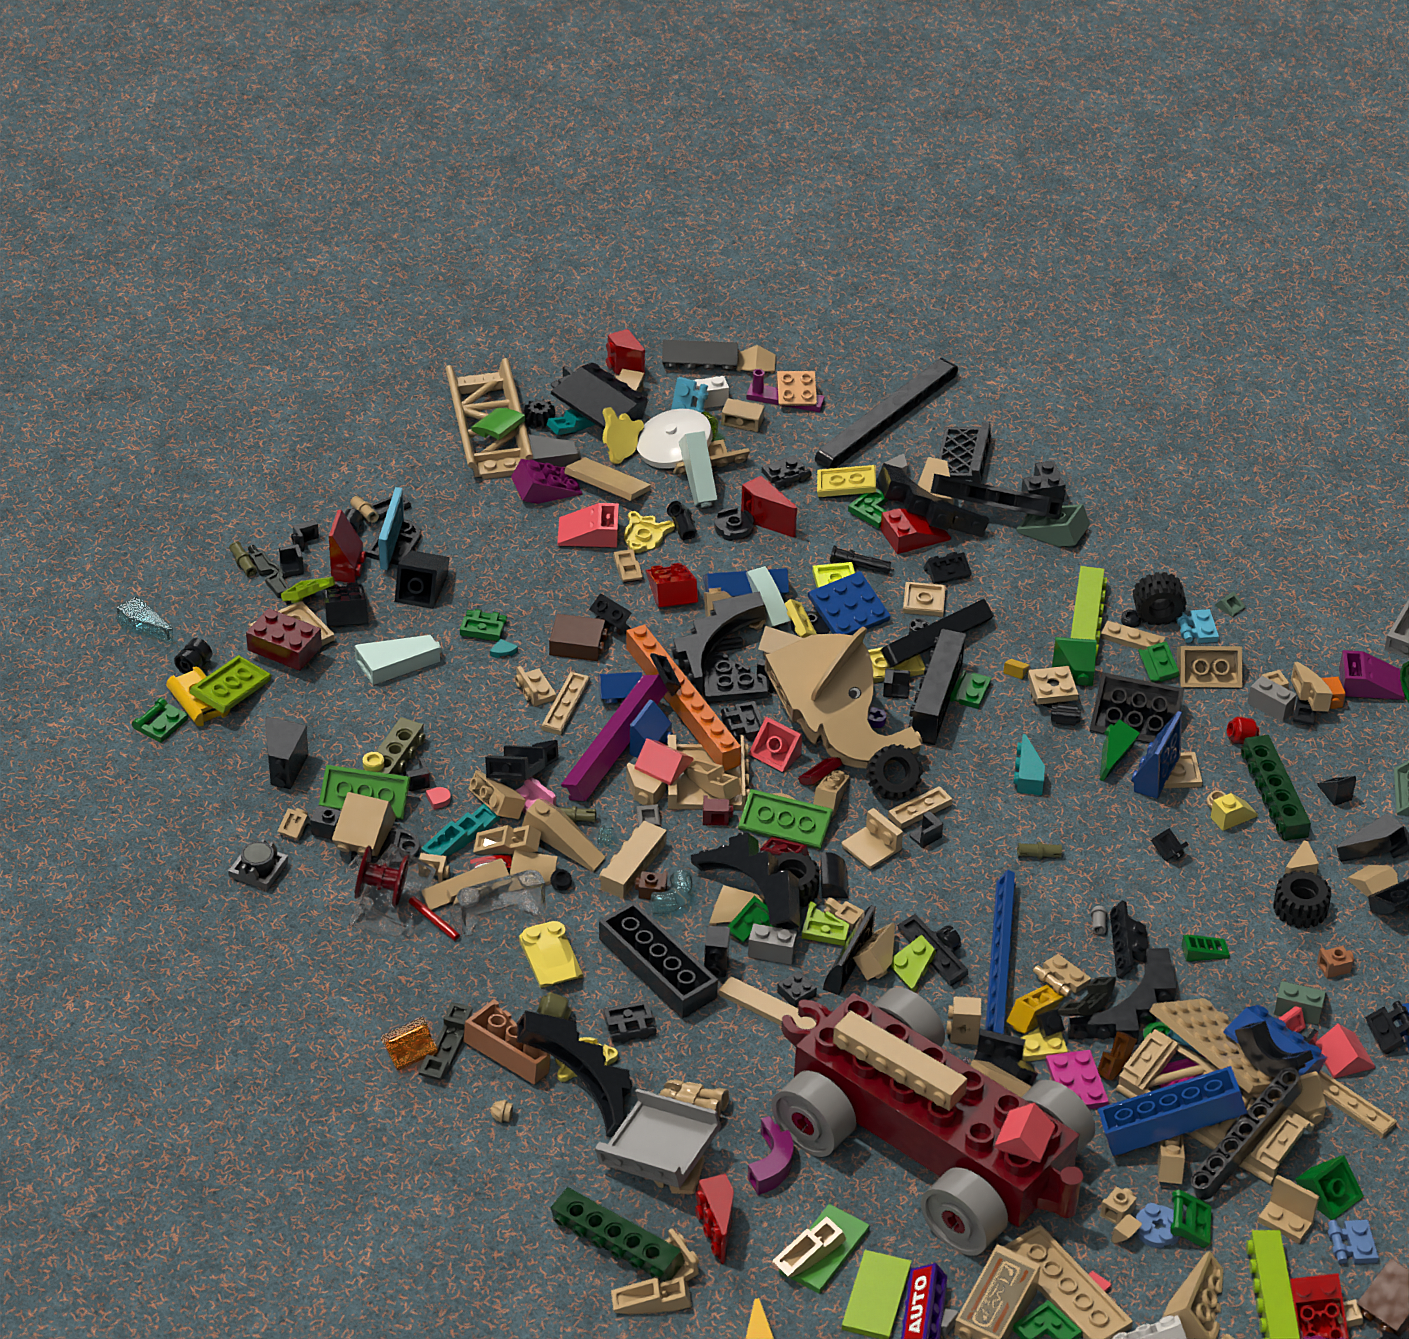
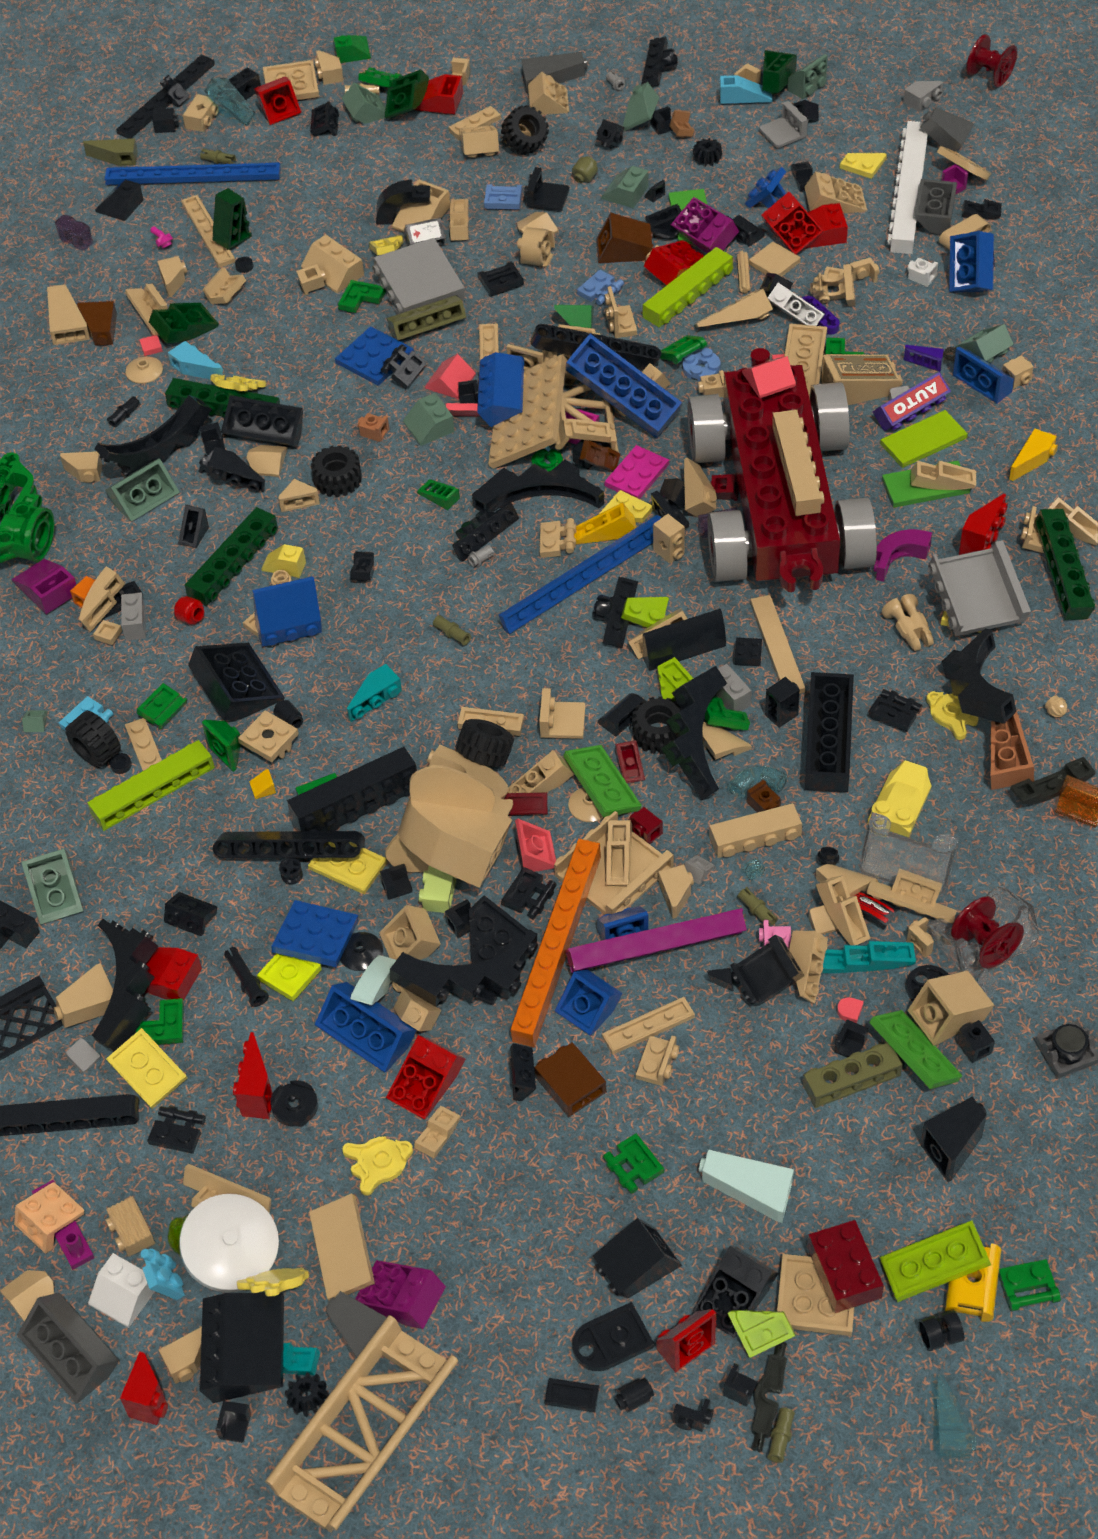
camera: 130 degrees left, 10 degrees up
(294, 823) = (999, 1067): tan bracket -> none
(365, 508) = (604, 1401): tan pin -> none
(373, 761) = (887, 1061): light yellow tile -> none
(391, 528) = (618, 1324): medium azure plate -> none
(435, 919) = (960, 889): red bar -> none
(498, 423) = (374, 1389): bright green slope -> none
(503, 648) = (642, 1124): teal tile -> none
(554, 1005) = (944, 753): olive head -> none
(563, 834) = (790, 890): tan wedge -> none
(590, 526) = (424, 1196): coral slope -> none
(662, 761) = (646, 879): coral slope -> none
(666, 673) = (562, 944): black slope -> none
(682, 520) = (335, 1137): black piece -> none
(698, 468) = (261, 1169): light aqua slope -> none
(800, 618) = (377, 938): light yellow plate -> none
(846, 912) = (647, 678): tan plate -> none
(896, 683) = (375, 836): black panel -> none
(924, 599) = (243, 903): tan tile -> none
(929, 832) = (511, 698): black panel -> none
(996, 496) = (65, 931): black arch -> none
(1050, 1022) = (613, 500): black plate -> none
(1098, 995) = (569, 501): pearl dark grey slope -> none
(1116, 745) = (297, 659): green slope -> none
(1125, 1229) = (728, 364): tan slope -> none
(1210, 666) = (129, 675): tan slope -> none
(1264, 1053) = (526, 357): black arch -> none

